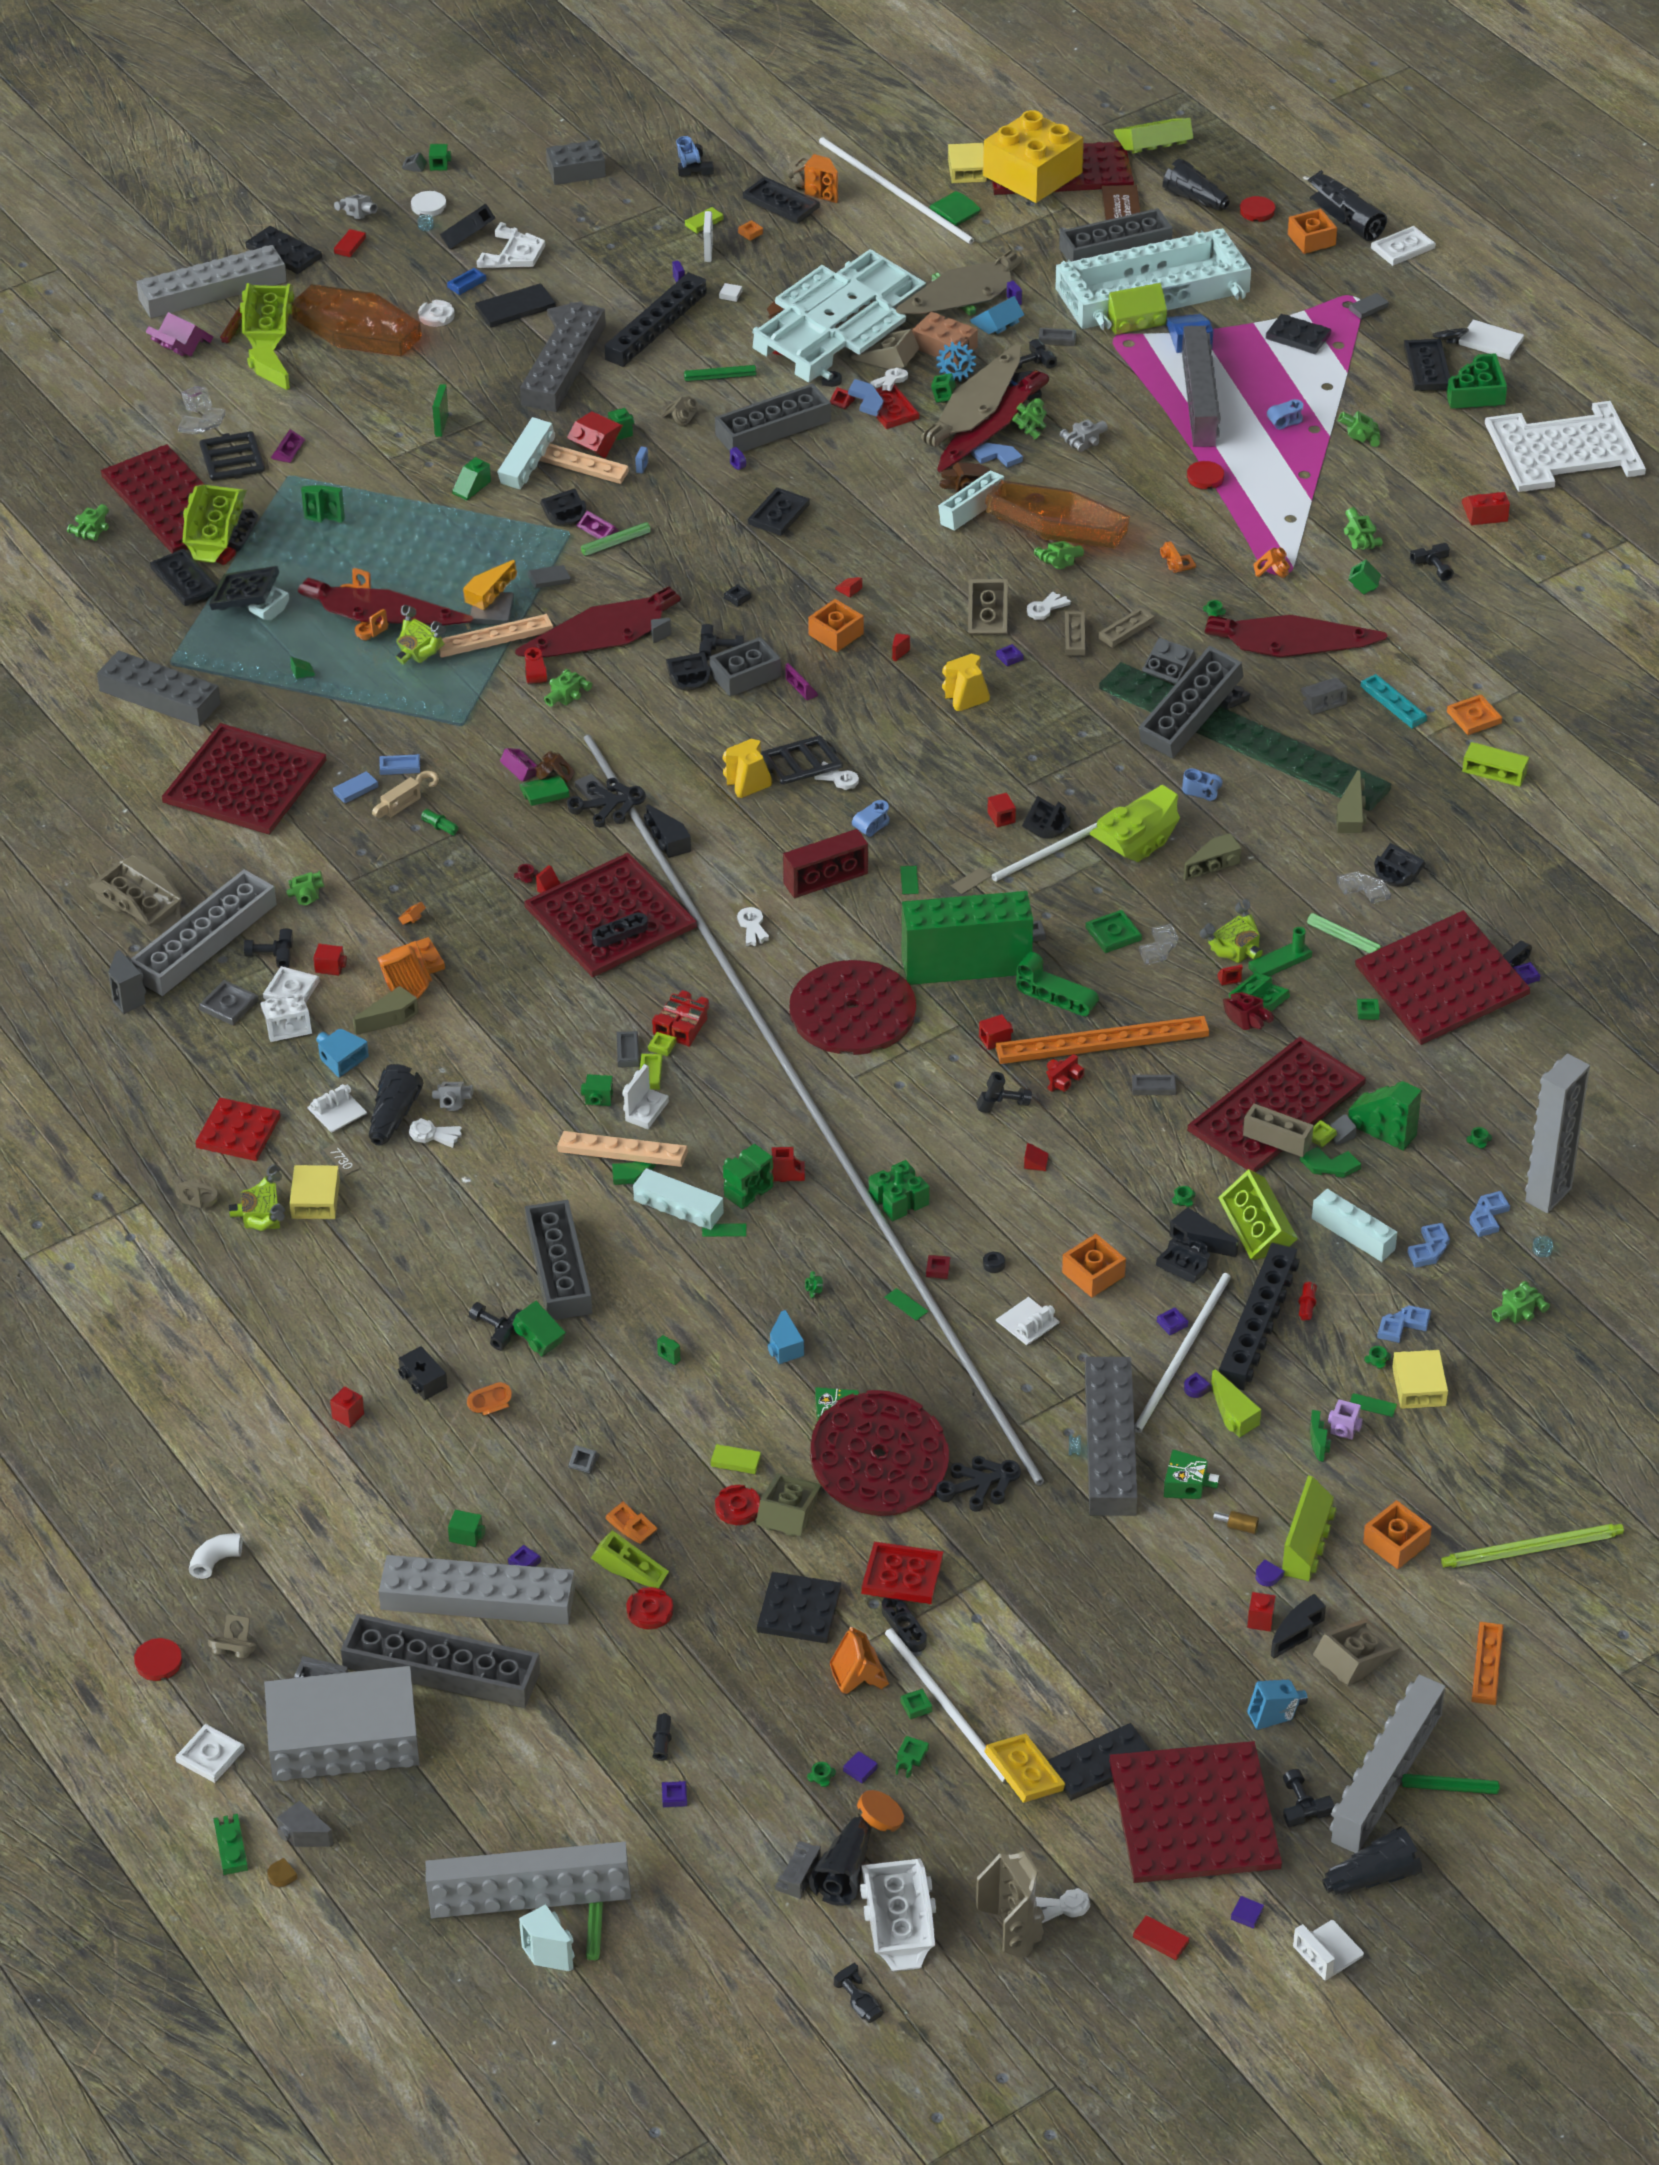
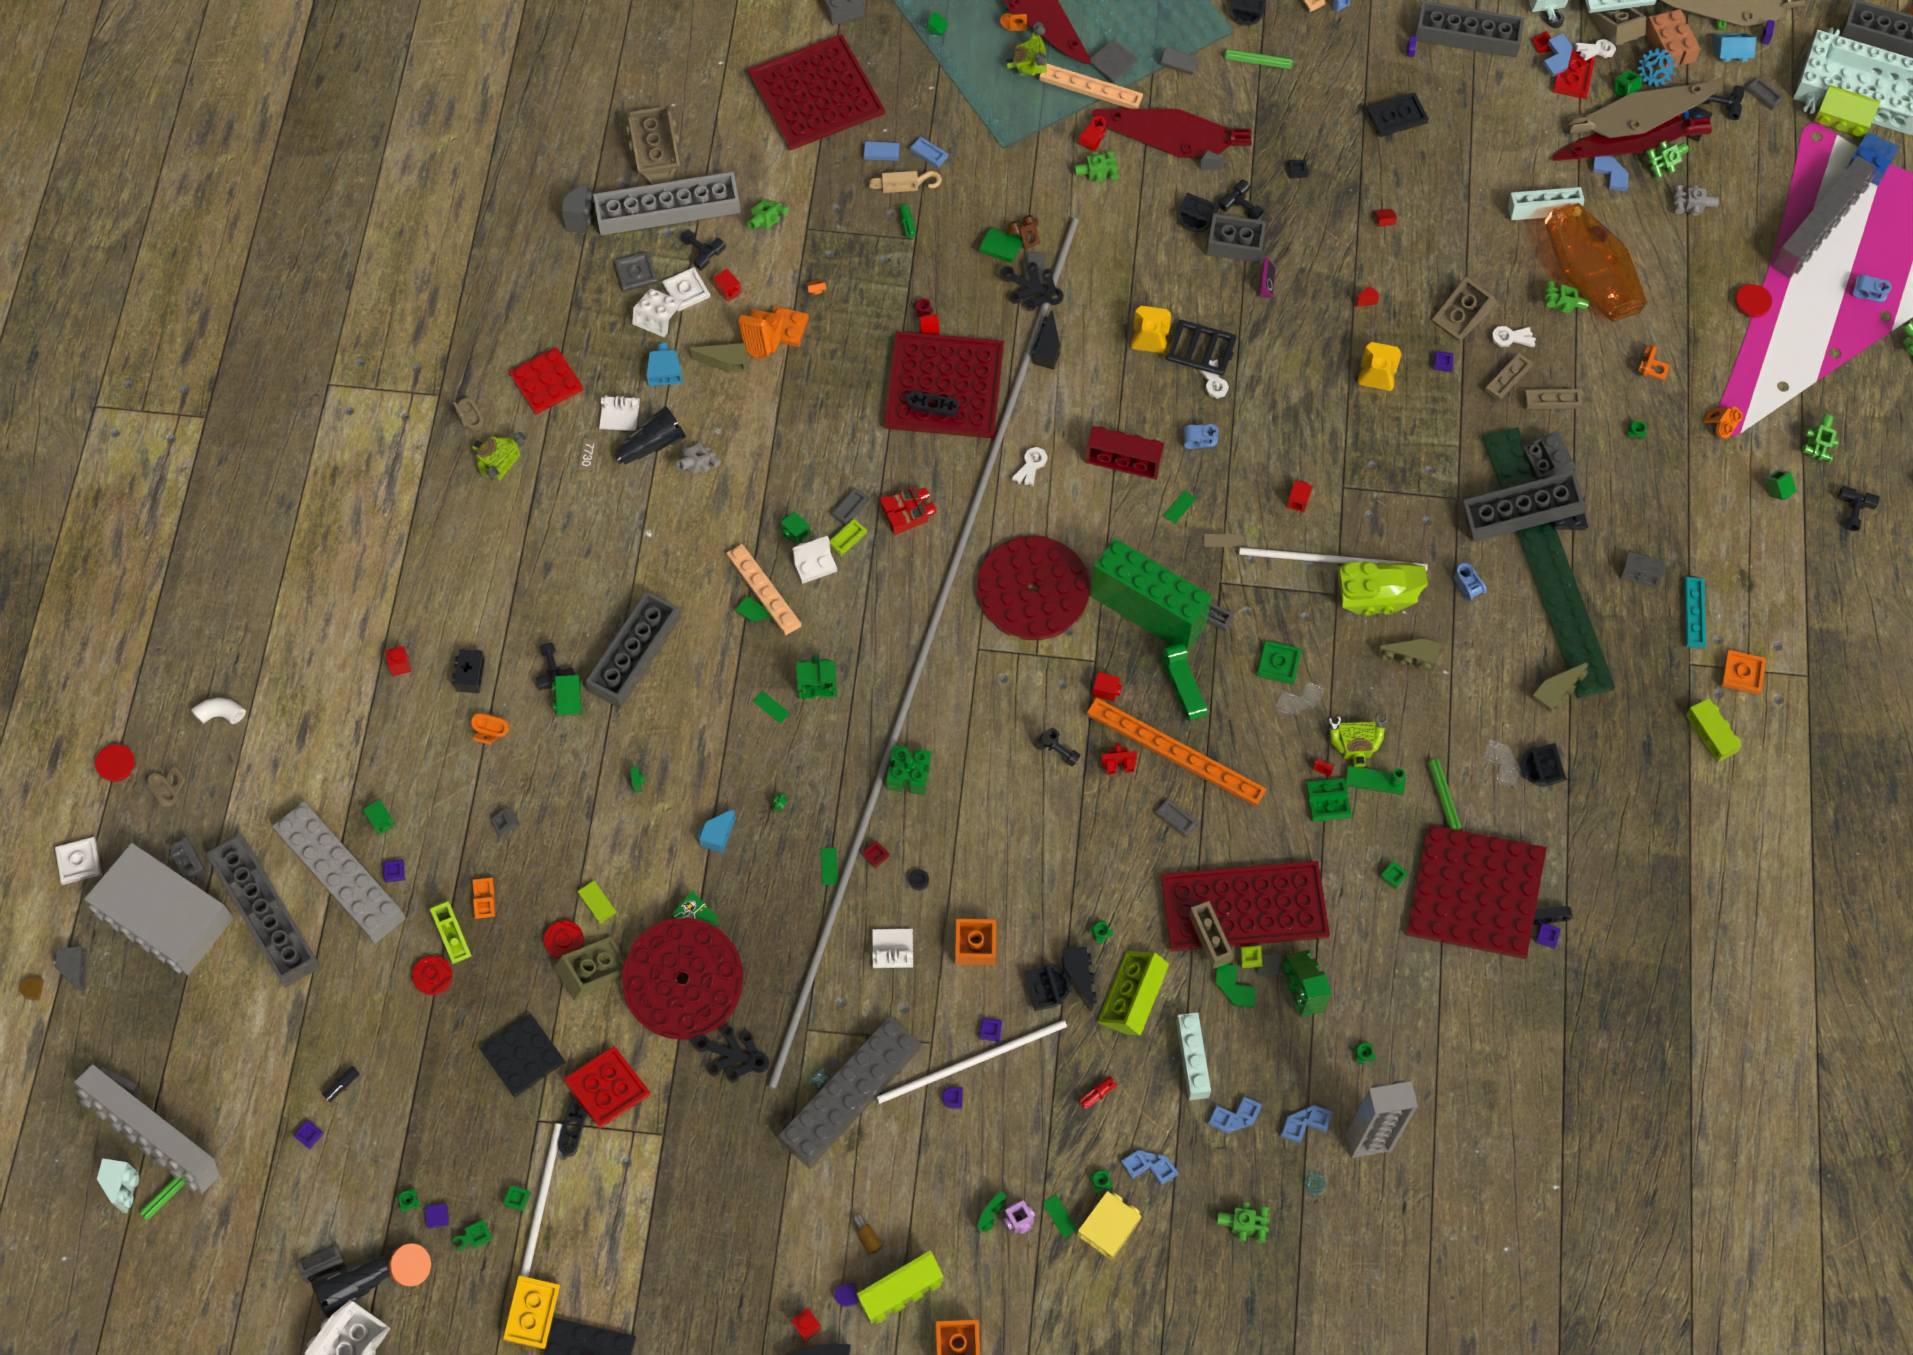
camera: 40 degrees right, 20 degrees up
(230, 1845) = (26, 940): green hinge -> none
(314, 1192) = (541, 470): light yellow brick -> none
(425, 1131) = (655, 474): white piece -> none
(488, 585) = (1120, 42): light orange slope -> none
(518, 763) = (1008, 208): magenta slope -> none
(596, 526) = (1256, 38): magenta slope -> none
(662, 1044) = (876, 520): lime tile -> none
(678, 1199) = (760, 660): light aqua brick -> none
(786, 1165) = (855, 689): red brick -> none
(836, 625) = (1336, 247): orange brick -> none
(855, 1662) = (509, 1137): orange piece -> none
(962, 475) = (1562, 177): reddish brown hinge -> none
(1035, 1158) = (1031, 815): red slope -> none
(1046, 819) = (1325, 528): black slope -> none
(1187, 1476) = (868, 1170): green torso -> none
(1236, 1409) = (956, 1139): lime slope -> none
(1247, 1011) = (1300, 810): dark red hinge -> none
(1258, 1315) = (1110, 1038): black brick -> none
(1291, 635) = (1674, 496): dark red wing -> none

